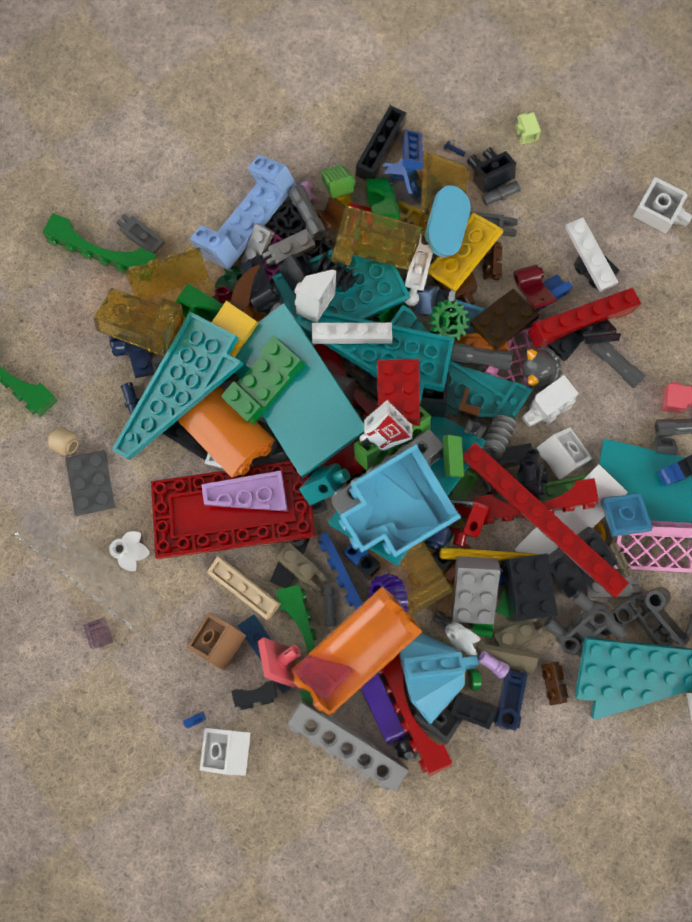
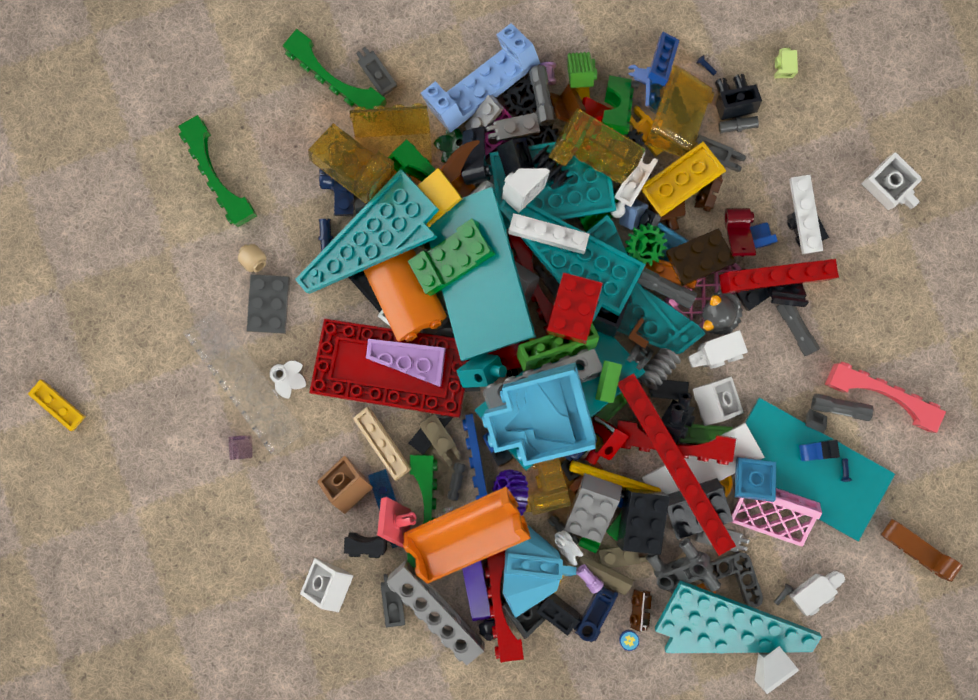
camera: 25 degrees right, 10 degrees up
(194, 720) = (302, 550): blue tile -> none
(222, 294) = (438, 156): dark red plate -> none
(299, 752) = (392, 606): none -> dark grey hinge
(322, 674) = (429, 546): clear pink wing -> none
(380, 143) = (635, 41): black brick -> none
(386, 427) = (552, 342): white torso -> none
(447, 221) = (674, 145): medium azure tile -> none
(474, 679) = (568, 587): green tile -> none
(552, 718) = (629, 640): none -> tile
(622, 564) = (736, 515): dark tan axle -> none
(656, 601) = (757, 566): black door -> none

